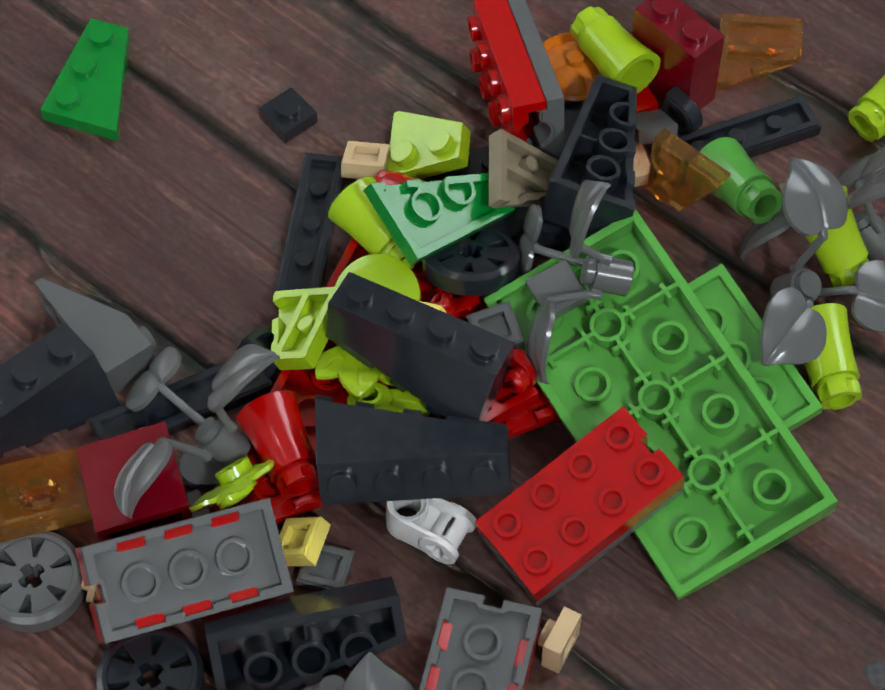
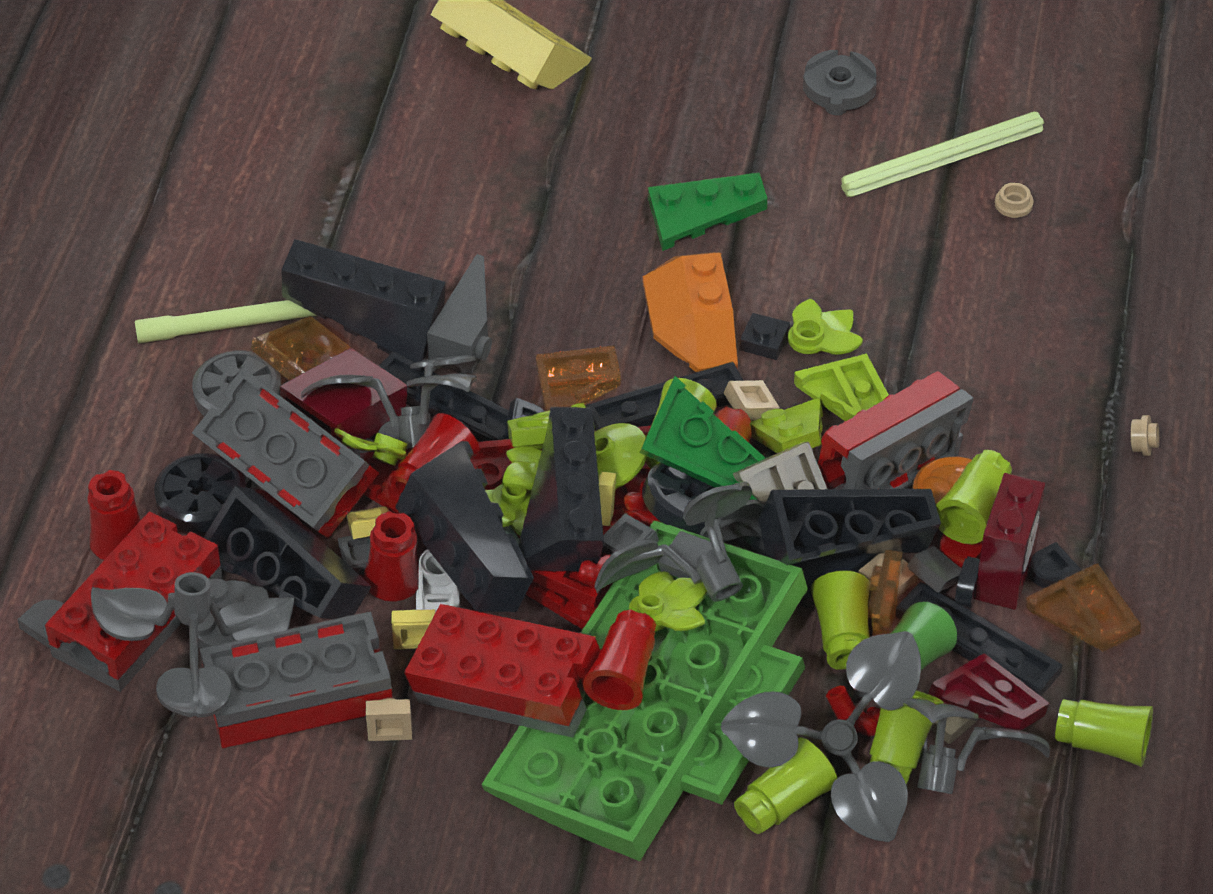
camera: 60 degrees right, 10 degrees down
(220, 145) = (692, 310): none -> orange wedge
(235, 283) = (577, 375): none -> clear orange wing
(314, 66) = (822, 331): none -> lime plate
(372, 539) = (393, 558): none -> red plant
(405, 84) = (843, 385): none -> lime wing
(463, 563) = (410, 627): none -> light yellow tile
(596, 328) = (670, 601): none -> lime plate
(649, 399) = (622, 663): none -> red plant
(674, 219) = (842, 613): none -> lime plant
(777, 265) = (843, 707): none -> red arm
(826, 146) = (991, 693): none -> dark red wing

